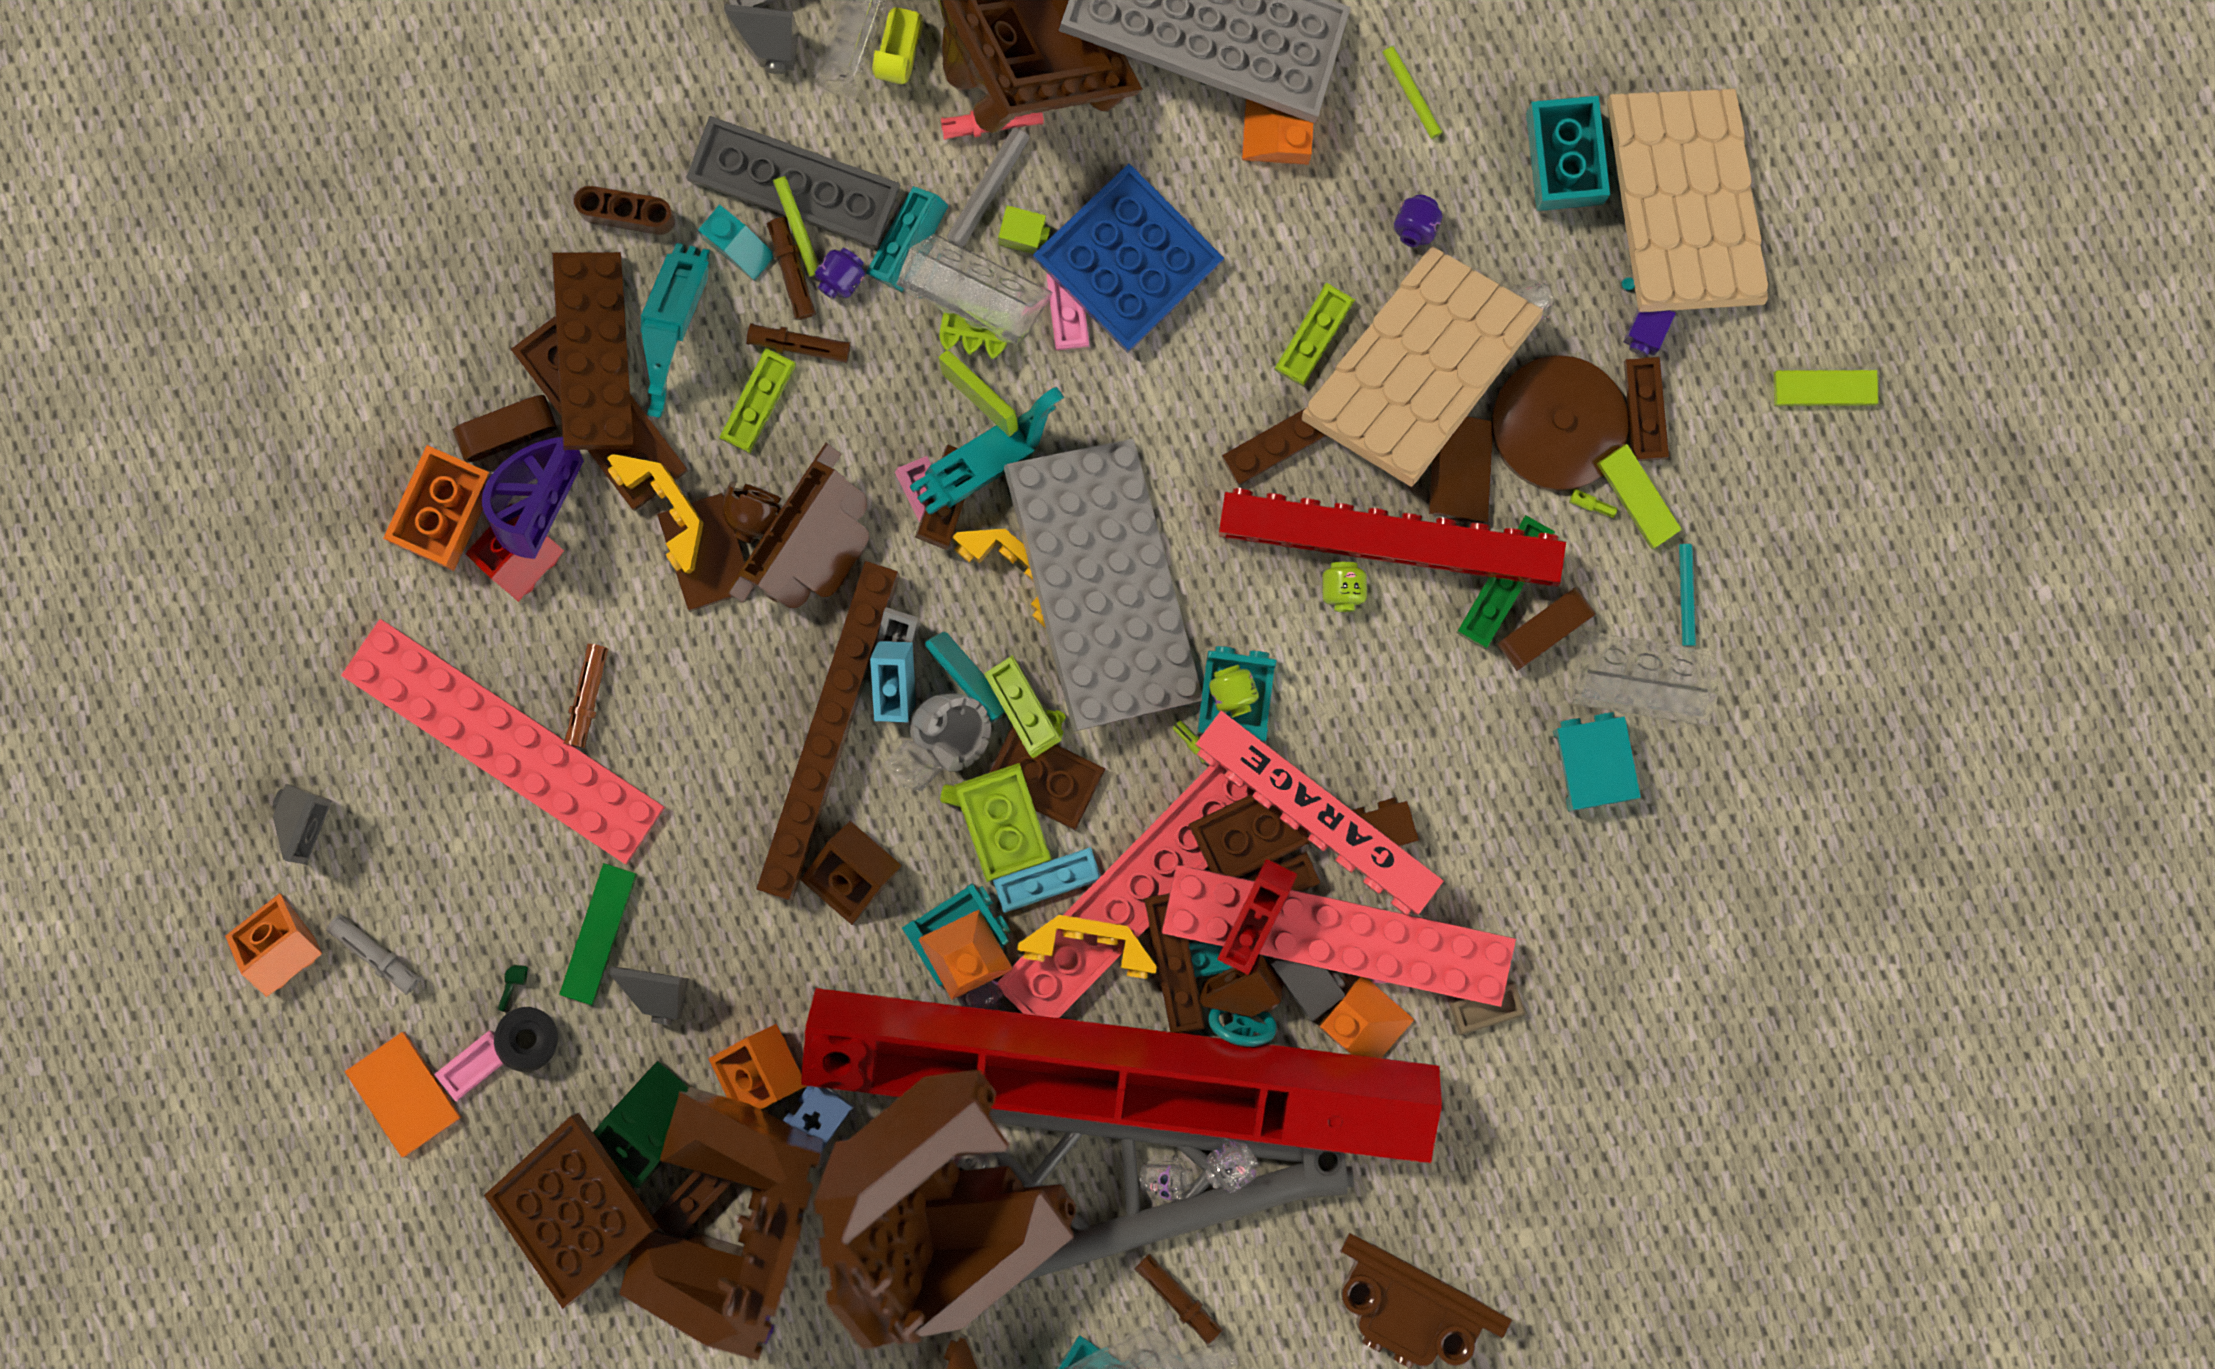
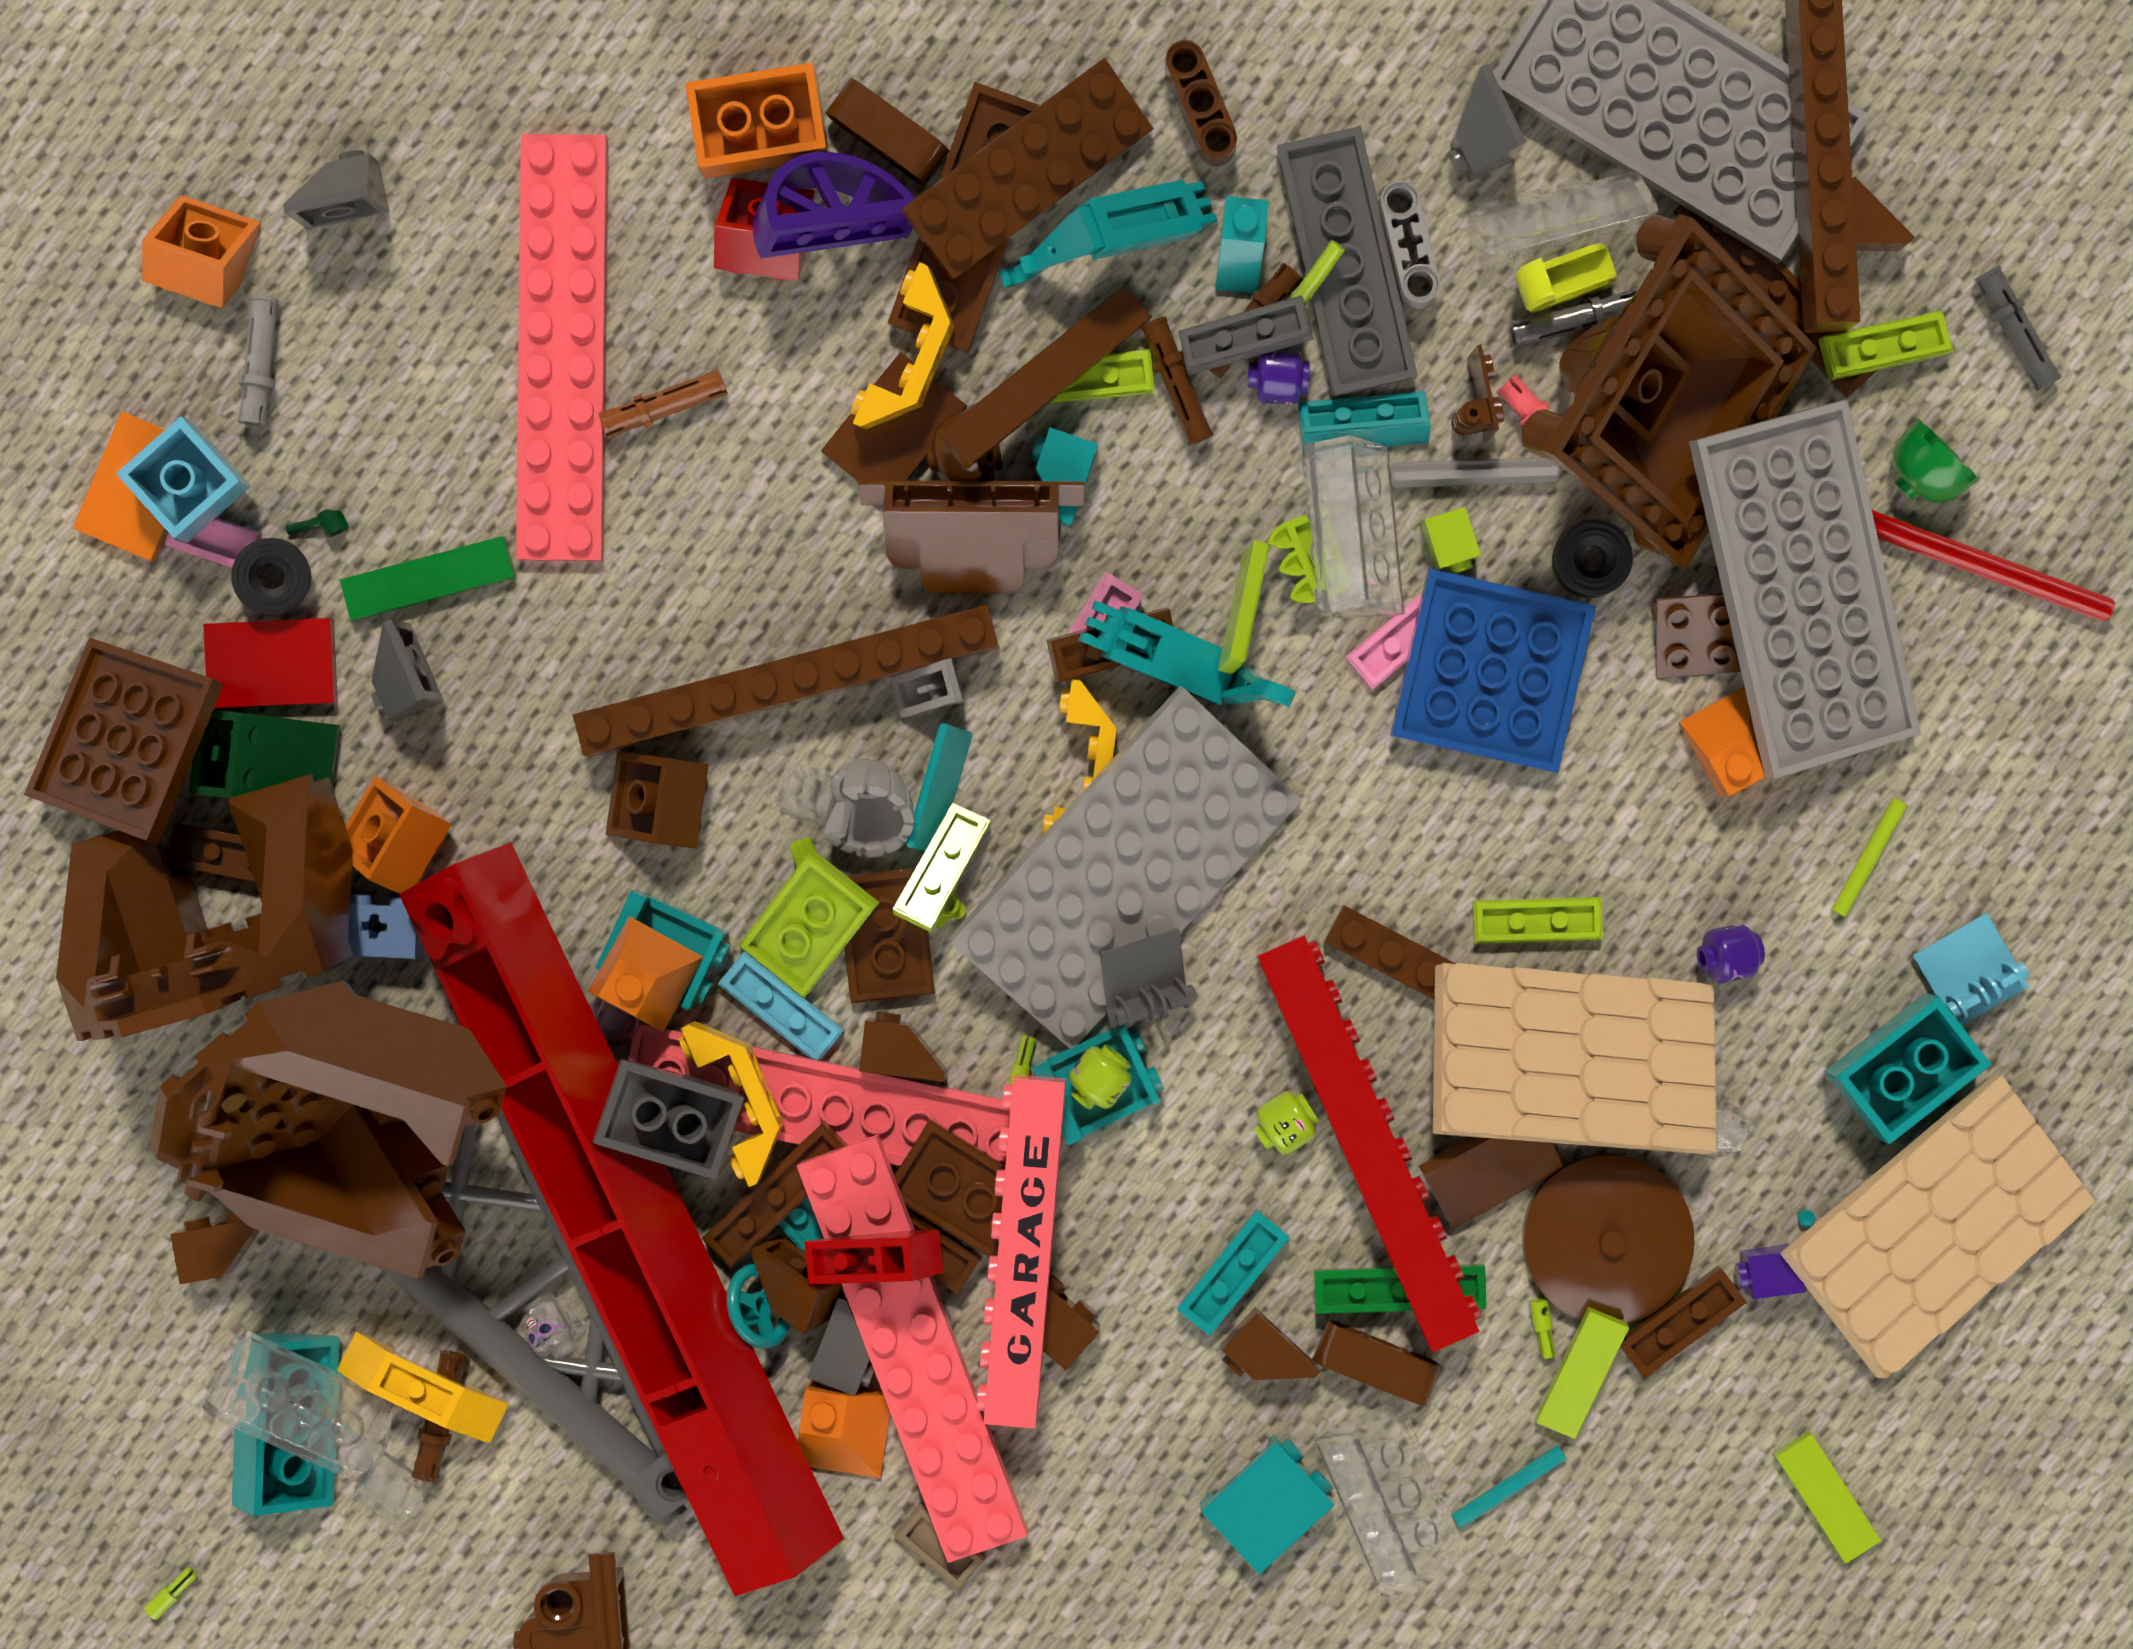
camera: 60 degrees right, 5 degrees up
(421, 1053) = (183, 479): none -> medium azure brick
(584, 1077) = (272, 662): none -> red tile
(738, 425) = (1044, 377): none -> reddish brown tile
(798, 276) = (1245, 335): none -> dark grey tile
(800, 448) = (1064, 459): none -> teal slope
(804, 124) = (1416, 232): none -> light grey beam
(893, 681) = (879, 716): medium azure brick -> none
(927, 62) = (1568, 319): none -> dark grey pin
(952, 151) = (1485, 411): none -> reddish brown hinge
(1073, 995) = (668, 1118): none -> dark grey slope
(1099, 127) = (1616, 553): none -> black tyre
(1127, 817) = (897, 1050): none -> reddish brown slope
(1150, 1296) = (421, 1389): none -> yellow slope
(1186, 617) = (1145, 979): none -> dark grey hinge
(1191, 112) = (1693, 636): none -> reddish brown hinge
(1231, 1166) = (602, 1390): clear head -> none
(1423, 687) = (1233, 1272): none -> teal plate
(1490, 699) = (1265, 1351): none -> reddish brown slope
(1529, 71) = (1972, 969): none -> medium azure hinge

